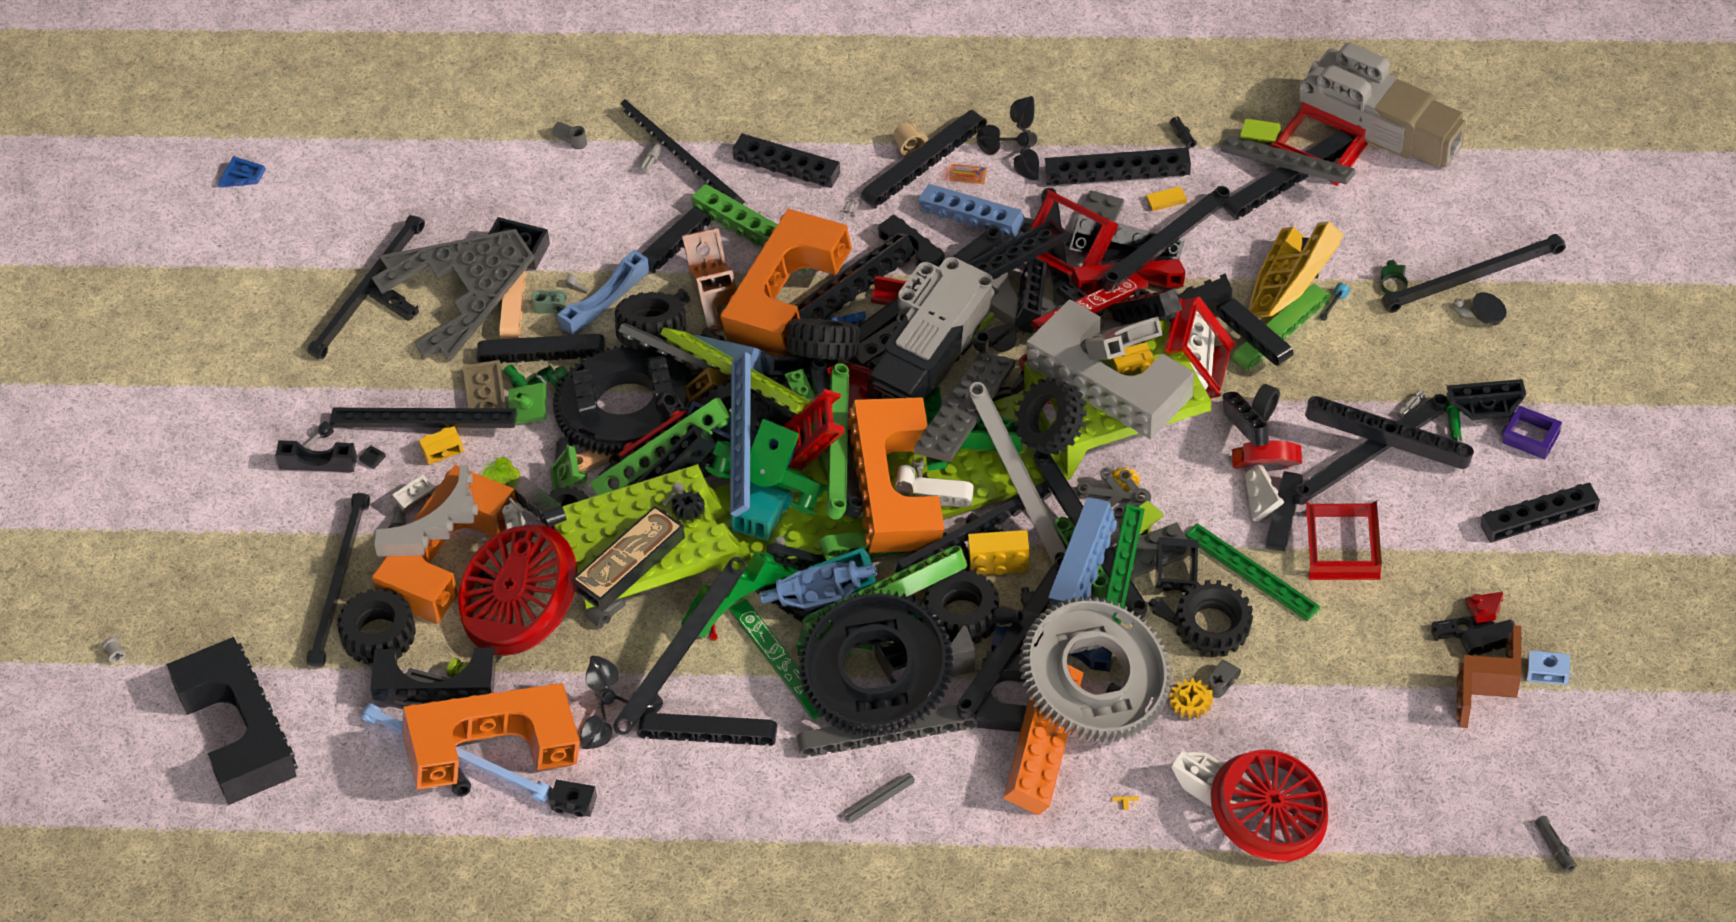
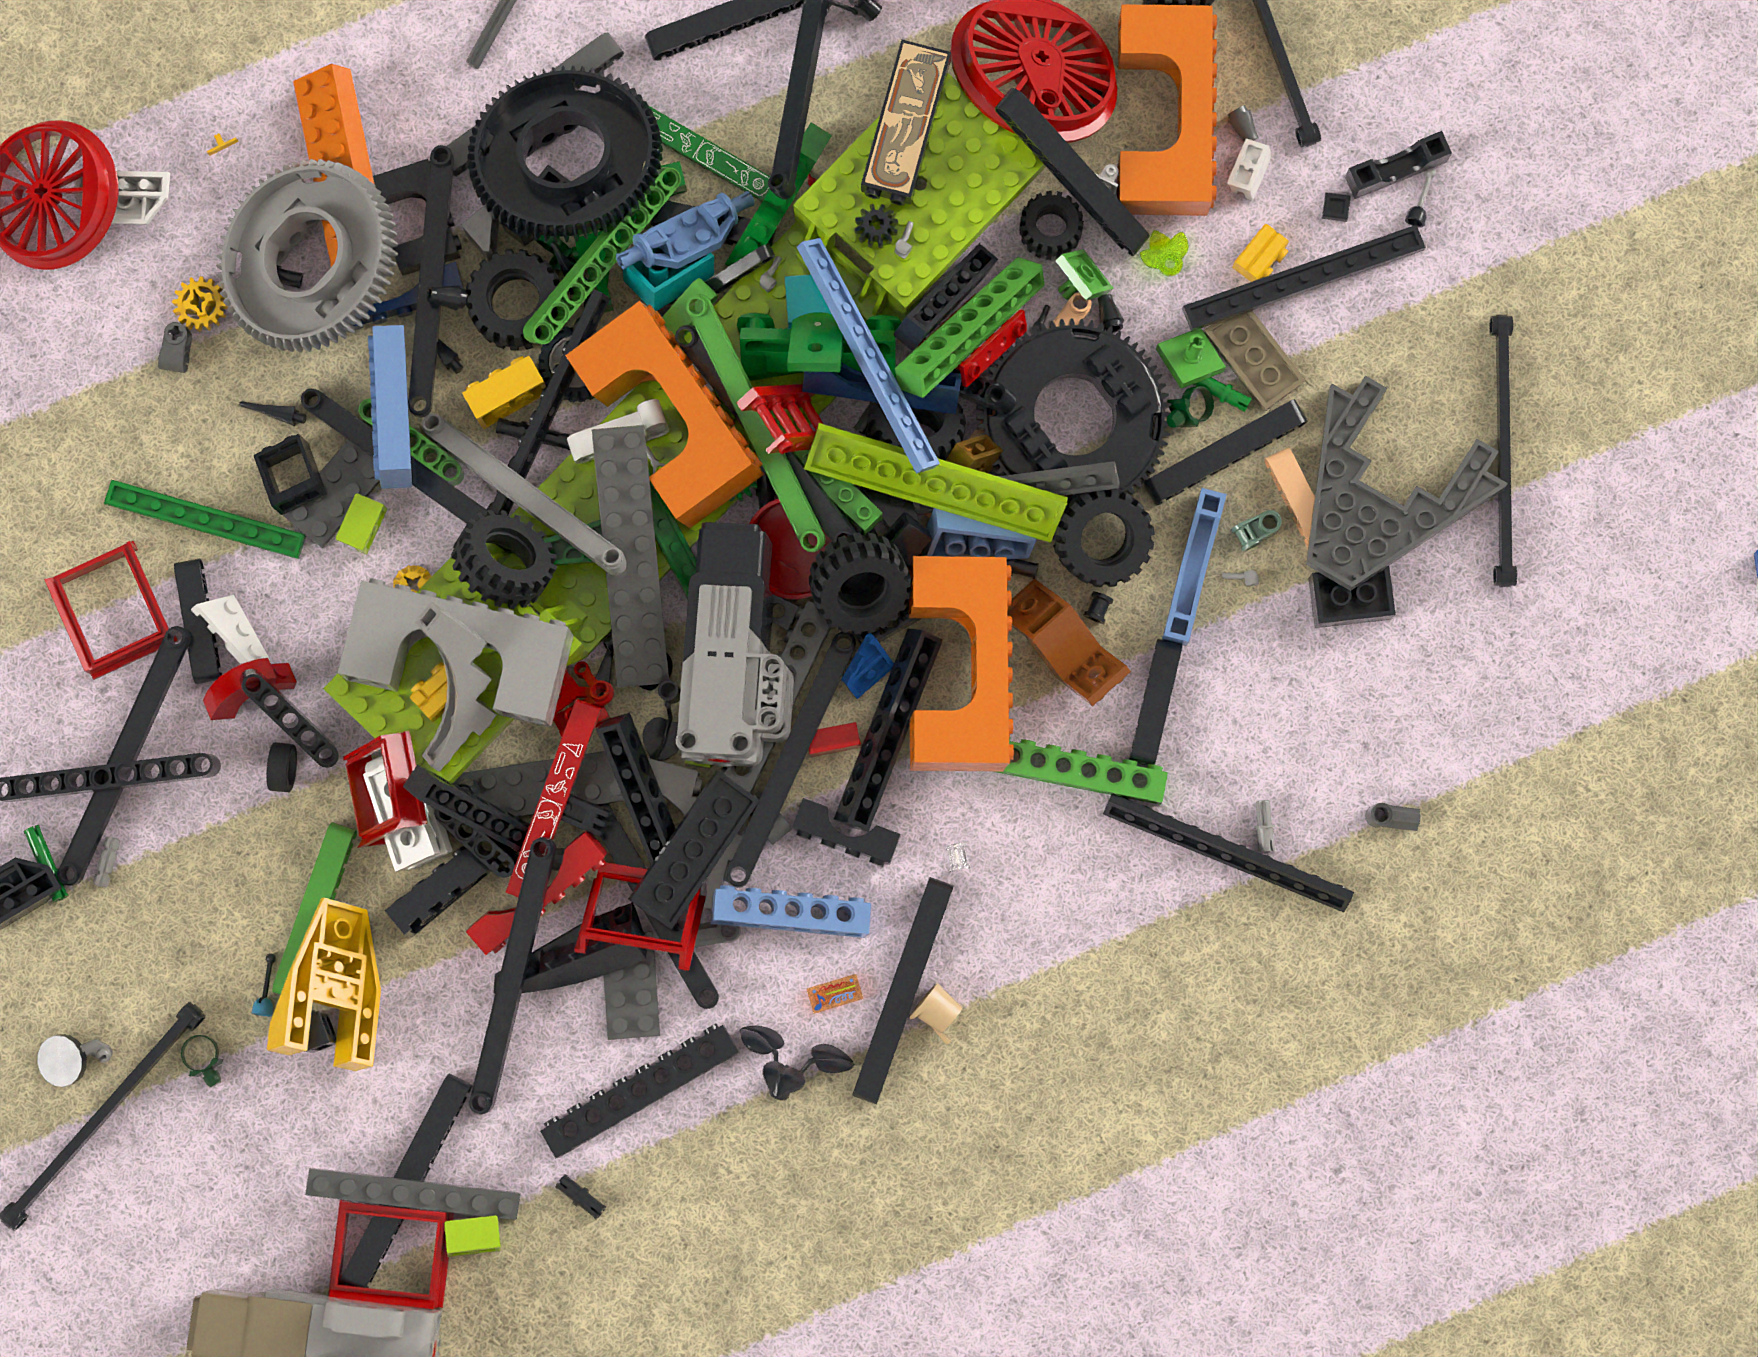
camera: 155 degrees right, 30 degrees up
(401, 308) = (1439, 441): black piece -> none
(415, 537) = (1191, 66): light grey arch -> none
(786, 160) = (1149, 904): black brick -> none
(1117, 494) = (409, 553): dark grey plant -> none
(1124, 556) = (349, 434): green tile -> none
(1166, 198) = (554, 1069): yellow tile -> none
(1215, 597) = (193, 396): black tyre -> none
(1255, 332) = (334, 867): black beam -> none

